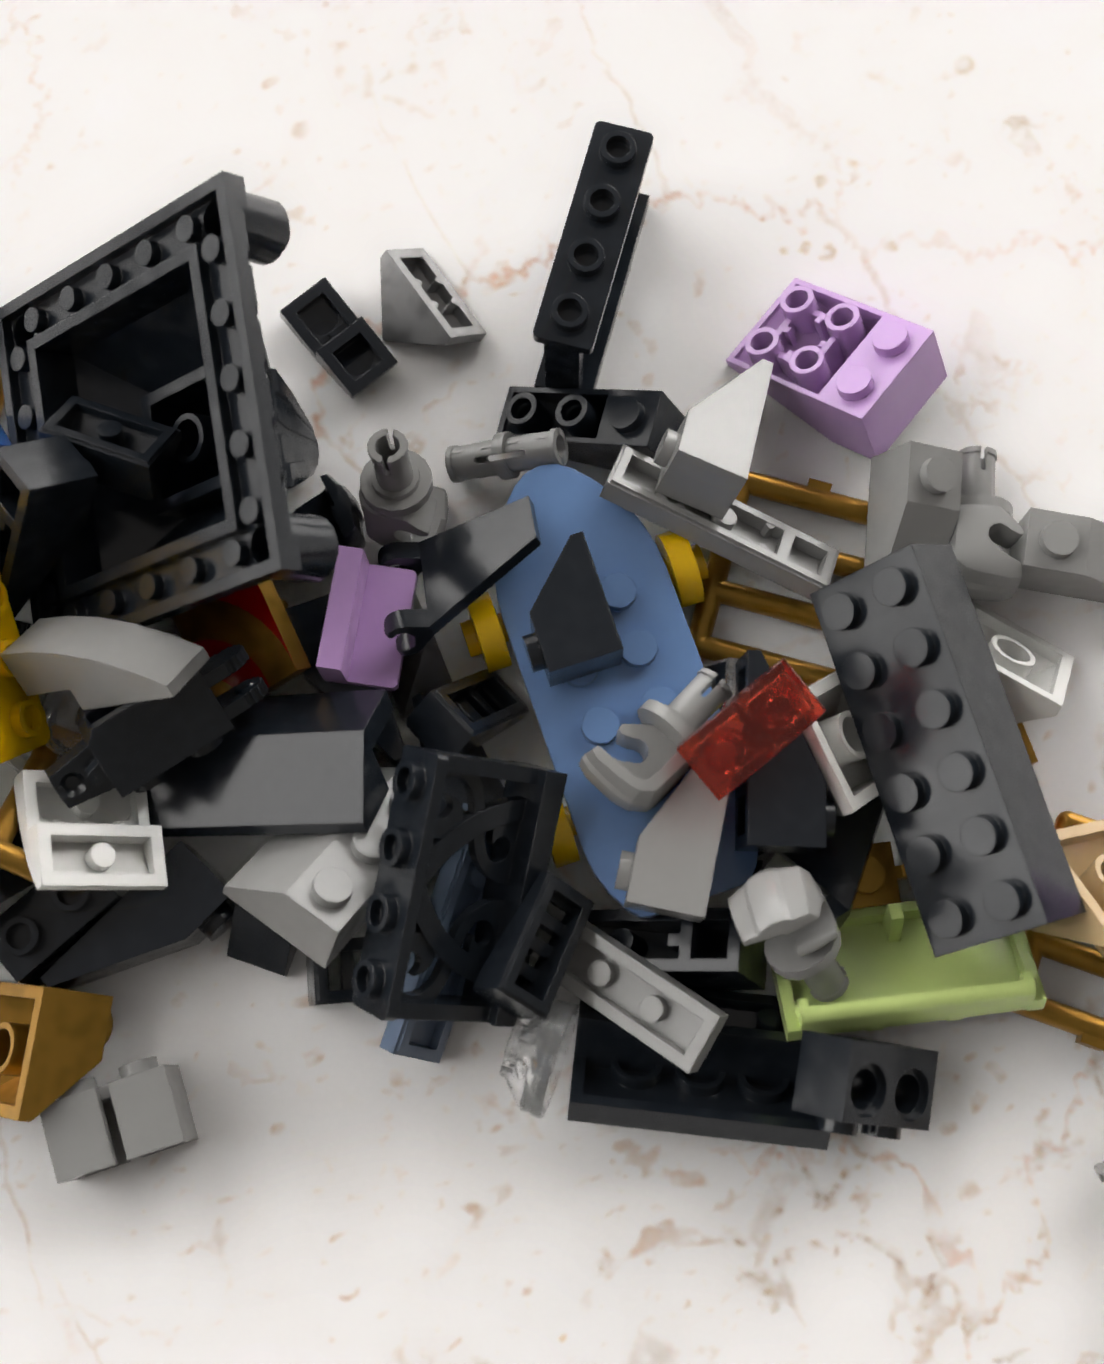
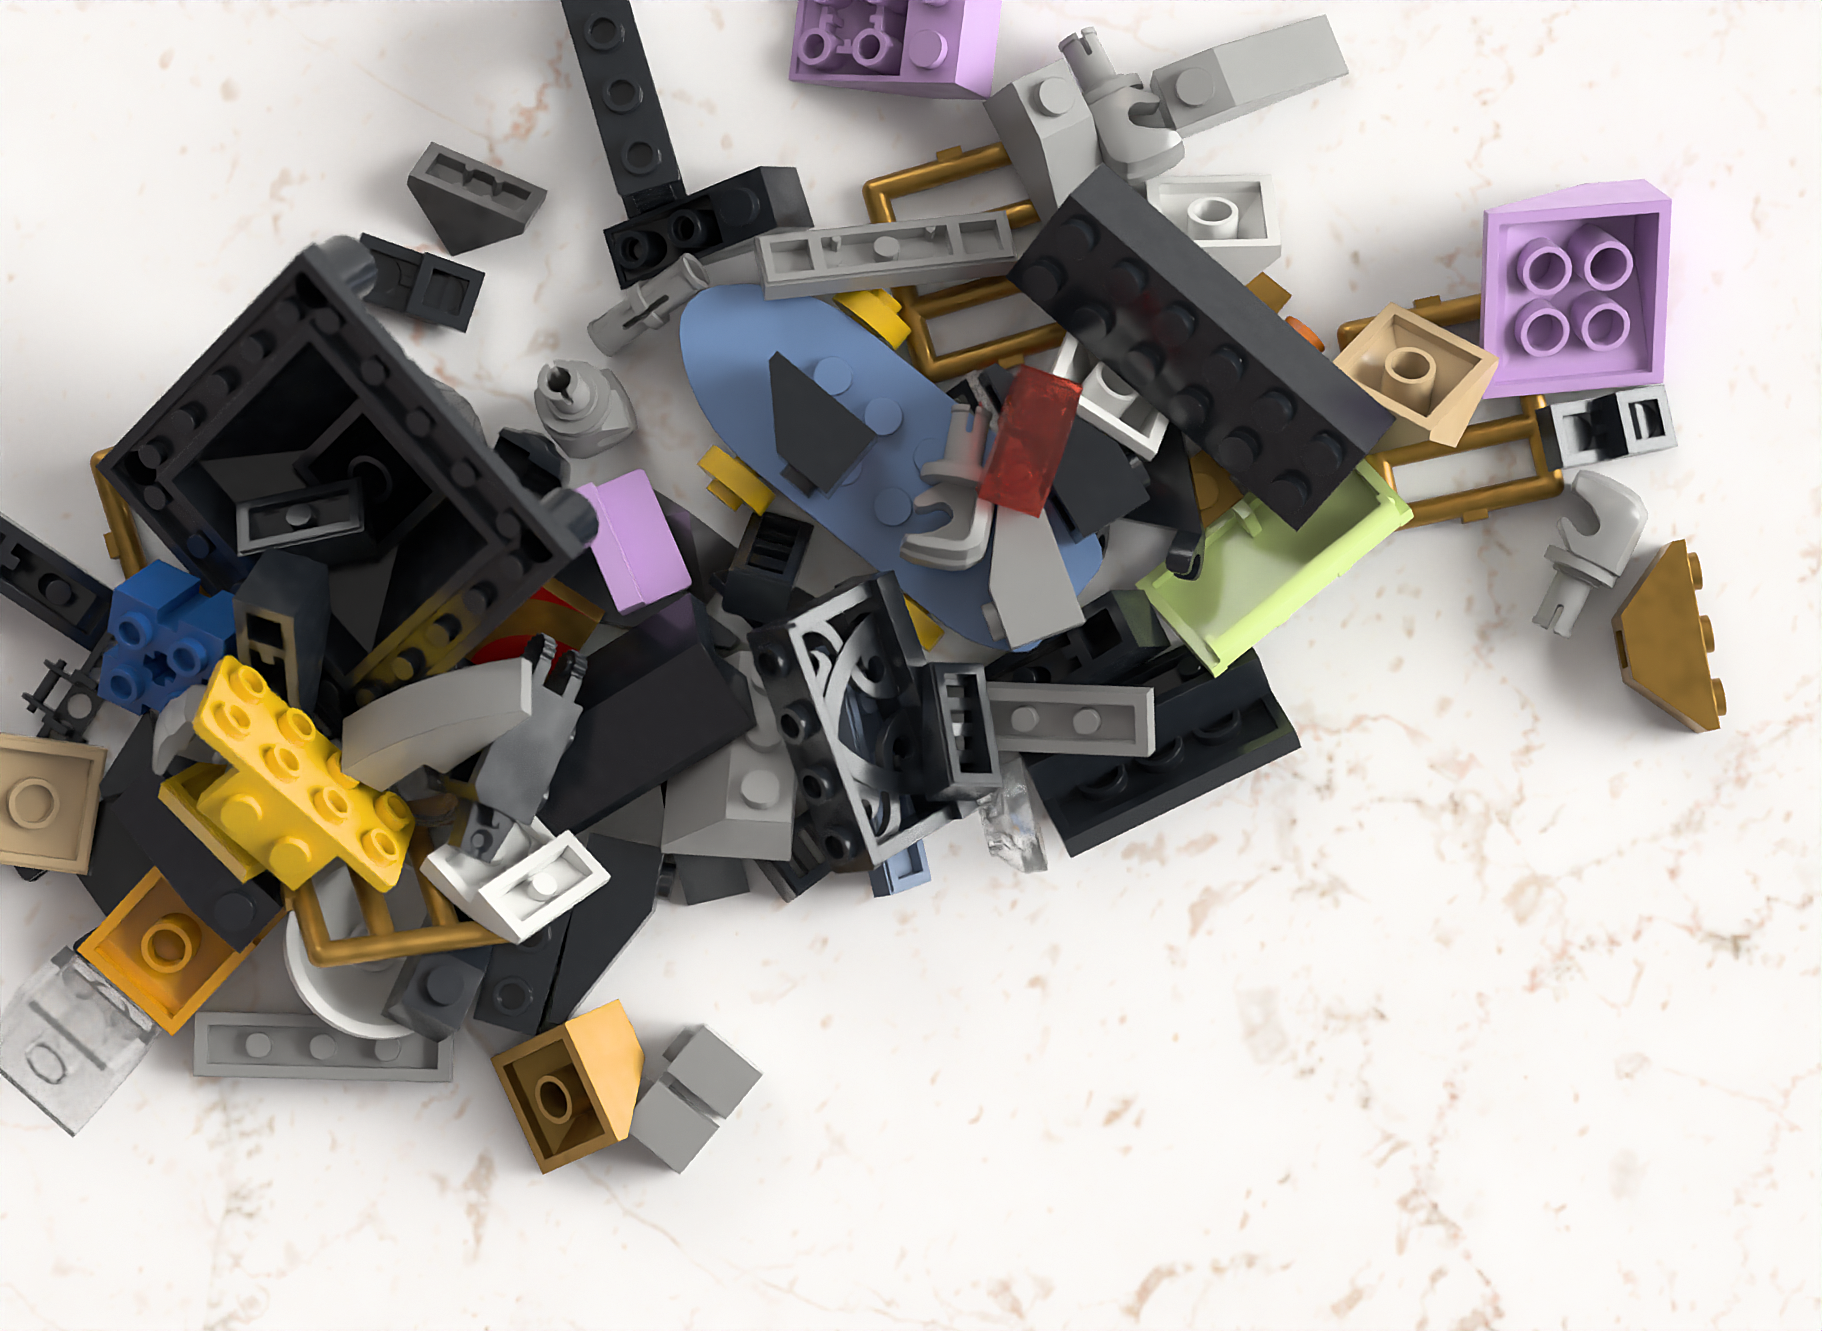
camera: 30 degrees left, 10 degrees up
(458, 568) = (680, 441): black flag -> none
(715, 444) = (839, 194): slope -> none
(797, 928) = (1164, 578): light grey piece -> none
(864, 1083) = (1300, 671): black brick -> none

